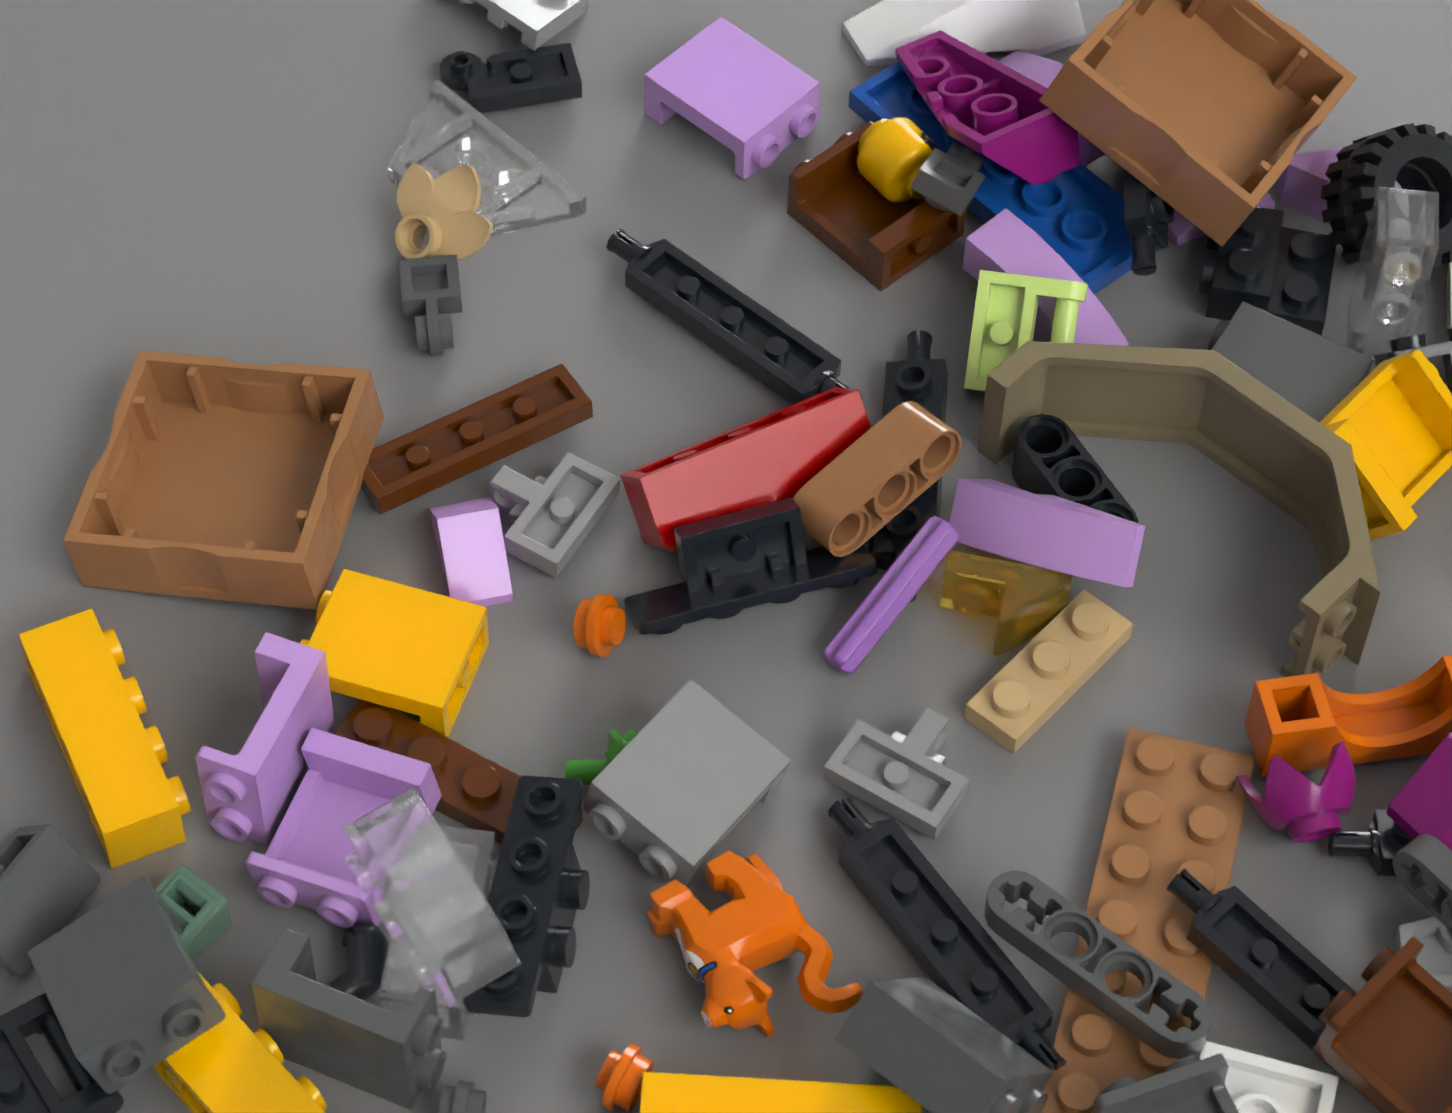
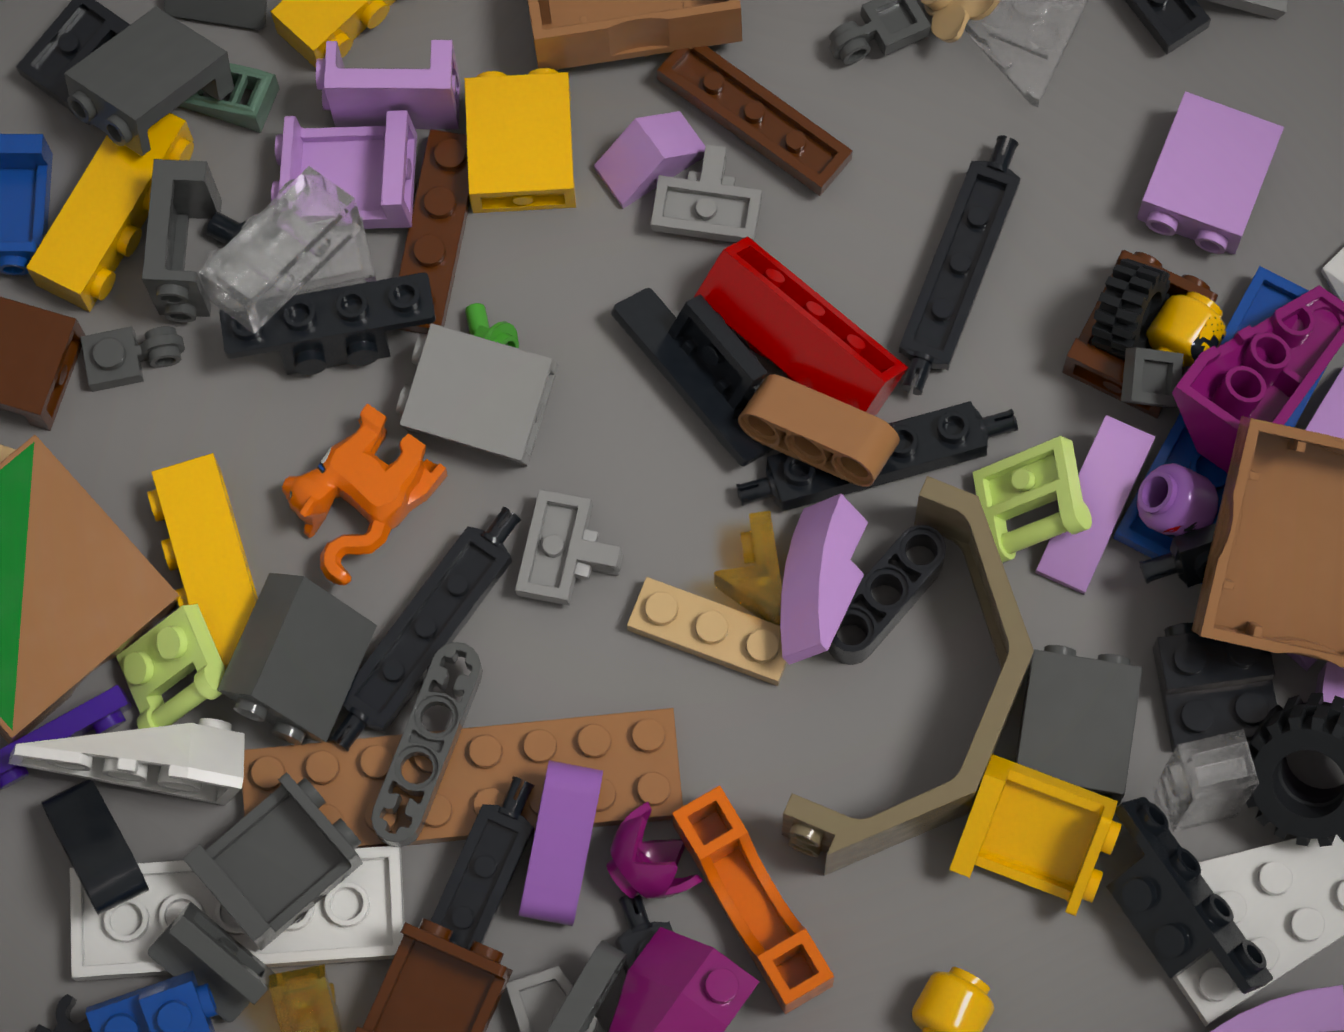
camera: 75 degrees right, 20 degrees up
(599, 624) = (610, 277): orange plate -> none
(622, 1077) = (222, 442): orange plate -> none
(861, 183) = (1129, 307): none -> black tyre
(891, 595) = (721, 483): medium lavender axle -> none
(1067, 203) = (1176, 500): none -> medium lavender head
(1239, 846) = (560, 843): none -> medium lavender beam

